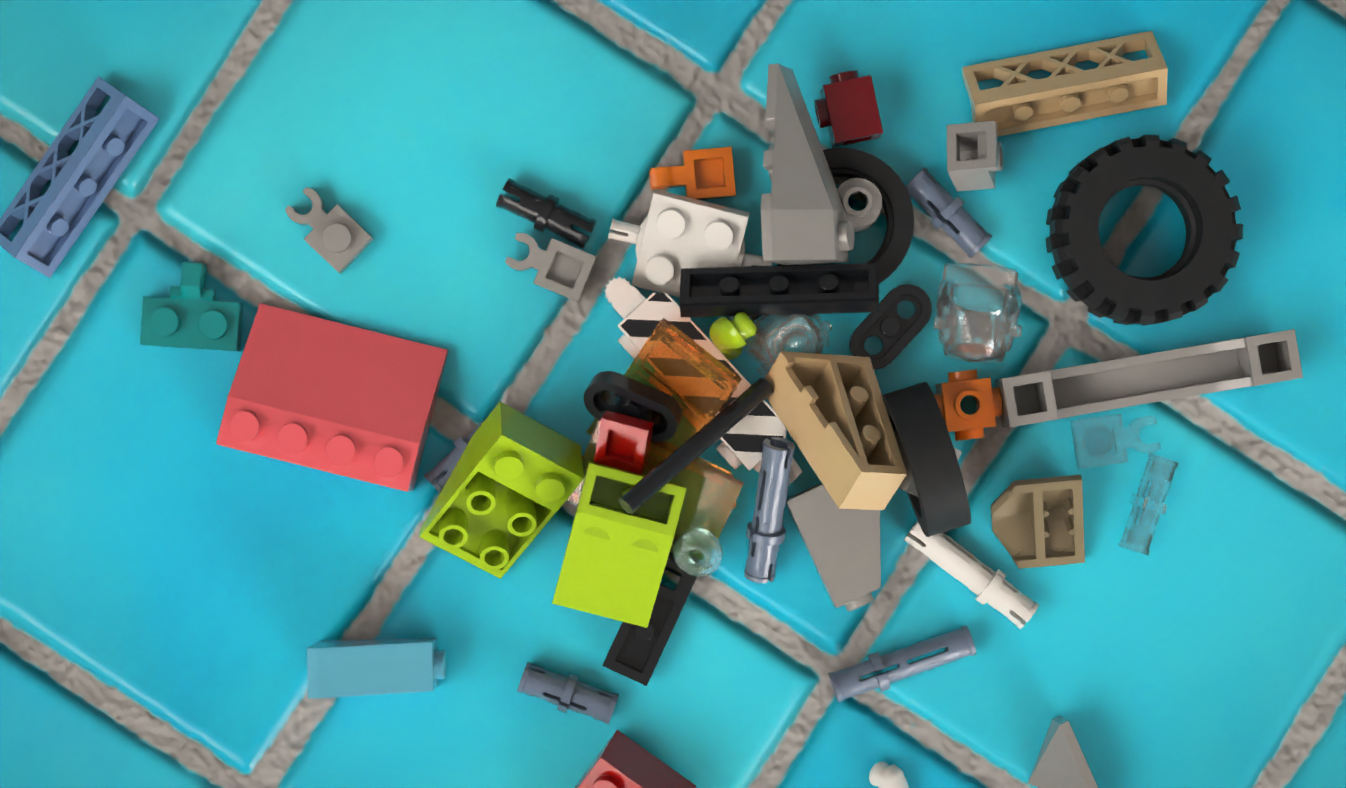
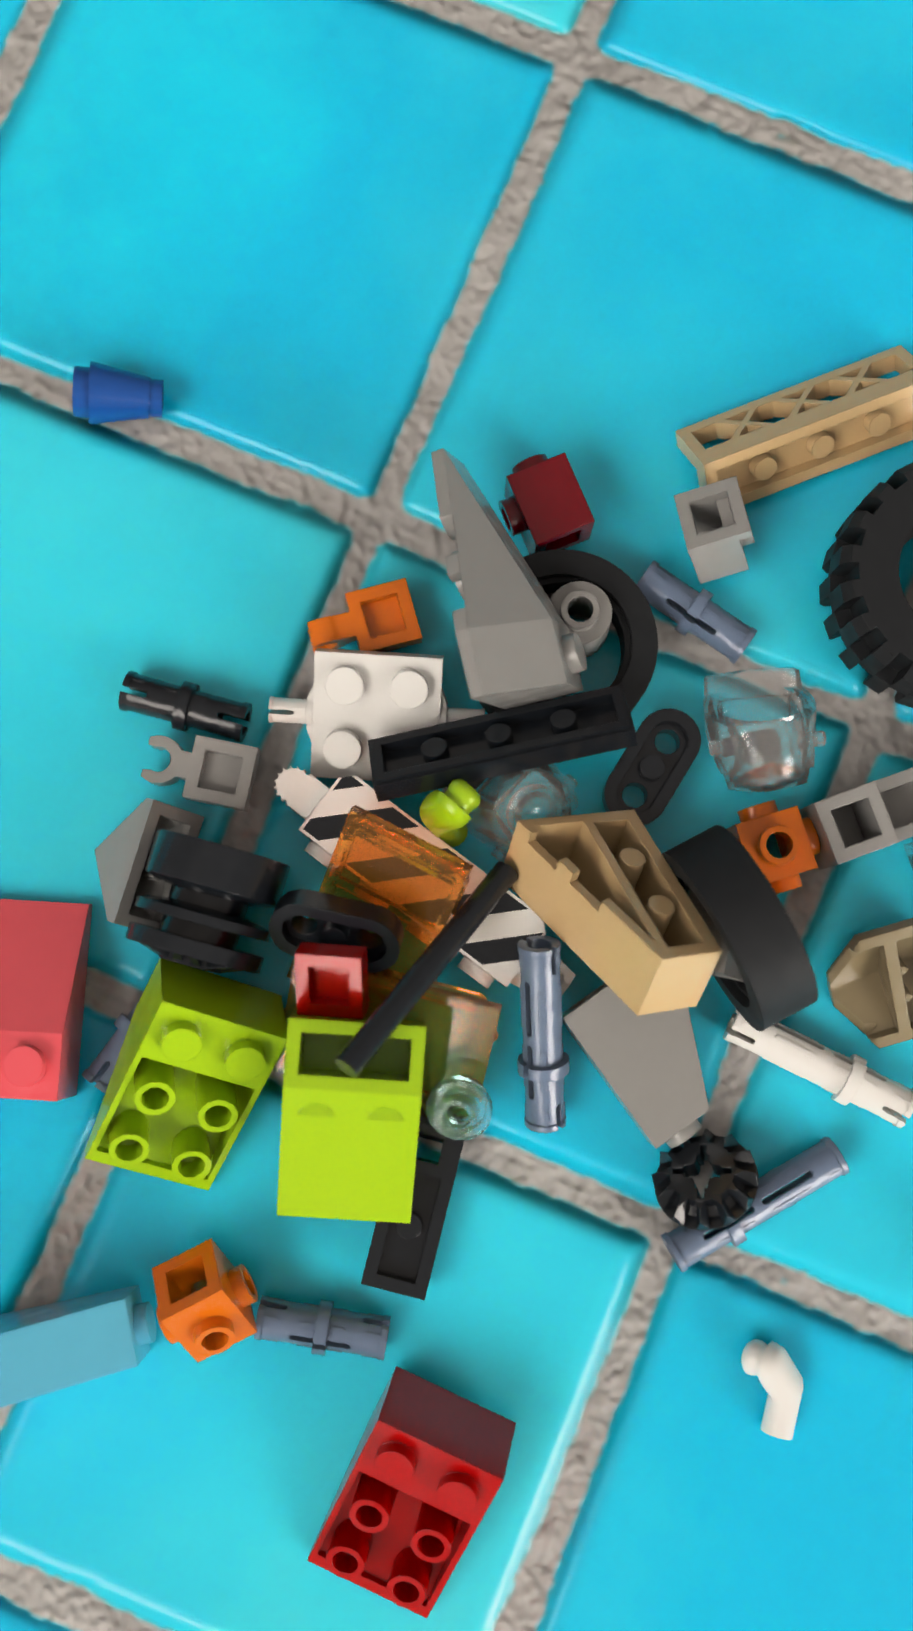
camera: 15 degrees left, 5 degrees down
(487, 655) = (204, 1300): none -> orange brick
(495, 329) = (124, 857): none -> light grey slope
(540, 367) = (207, 902): none -> black wheel
(880, 651) = (726, 1196): none -> black gear

